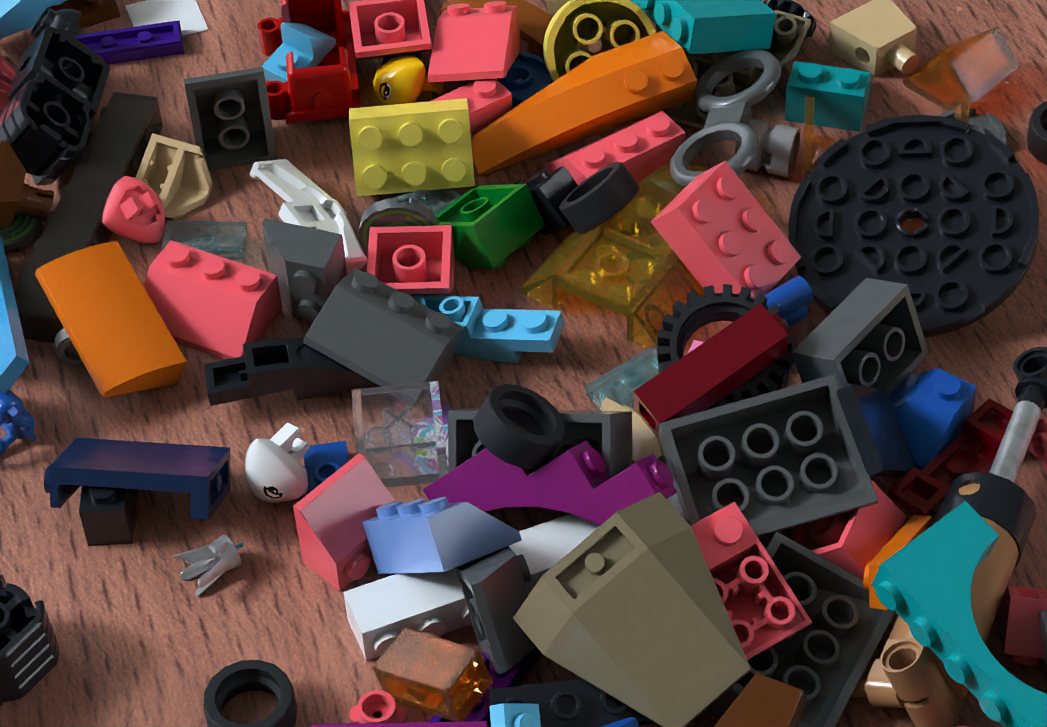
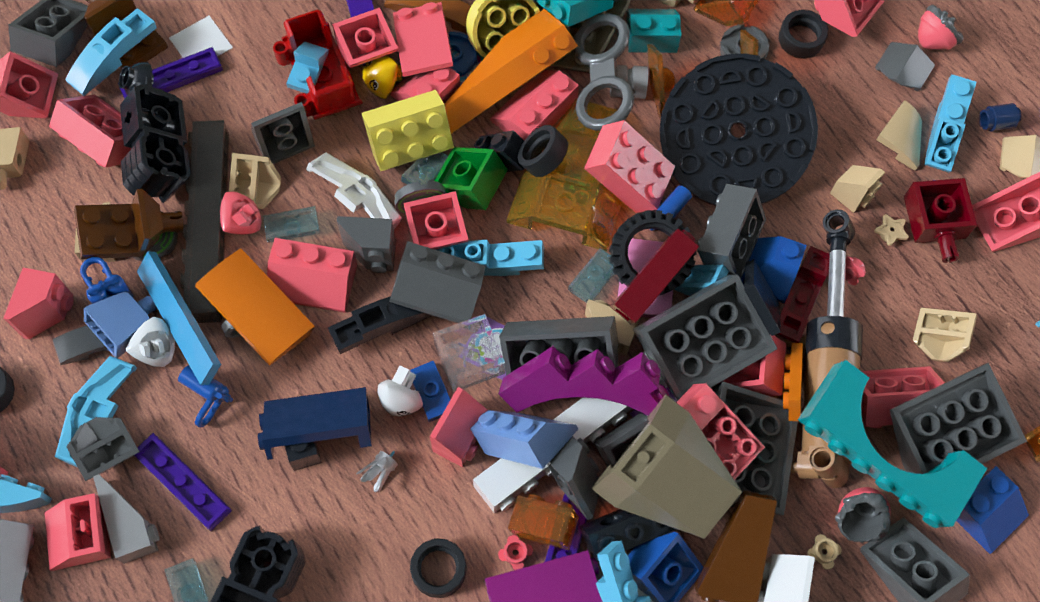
camera: 20 degrees left, 20 degrees up
(510, 442) = (548, 364): black tyre -> none

